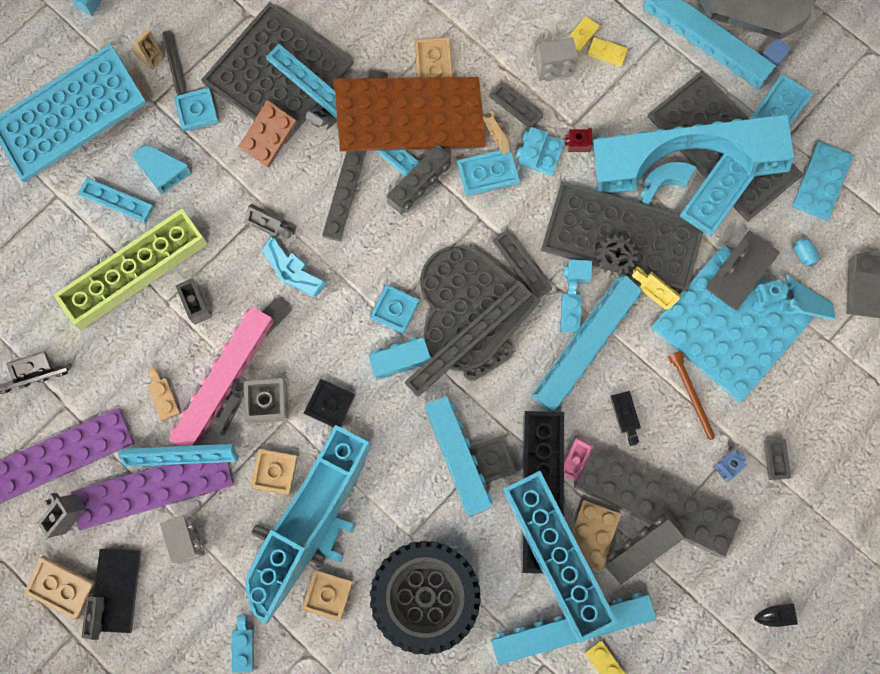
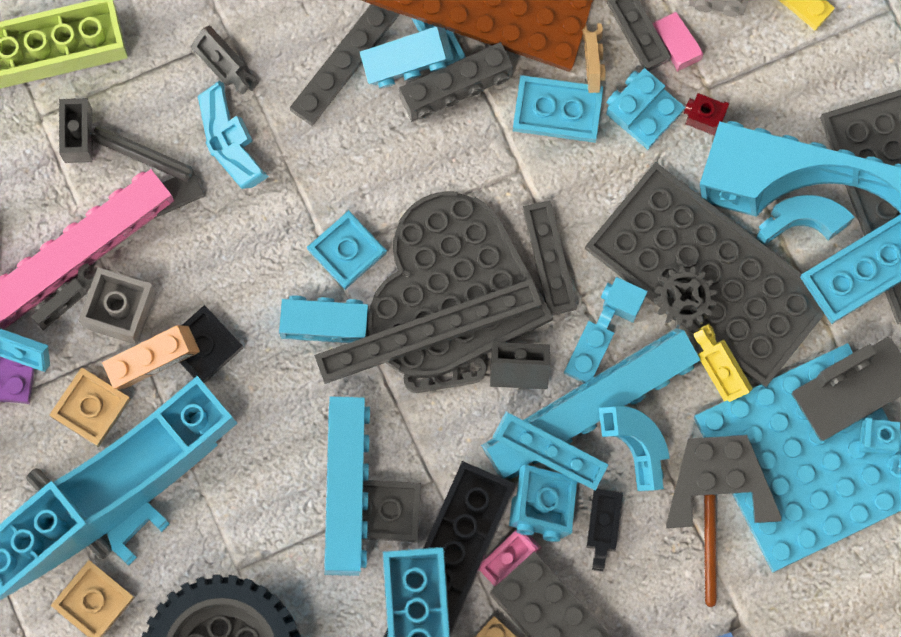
camera: 20 degrees right, 0 degrees up
(241, 299) = (142, 154): none -> dark grey axle
(300, 424) = (151, 357): none -> light nougat brick
(383, 175) = (407, 57): none -> brick
(533, 337) = (520, 365): none -> dark grey brick
(545, 104) = (678, 41): none -> bright pink slope
(576, 382) = (550, 451): none -> medium azure plate
(585, 417) = (543, 504): none -> medium azure plate
(630, 354) = (643, 440): none -> medium azure arch
(683, 351) = (716, 468): none -> dark grey wing

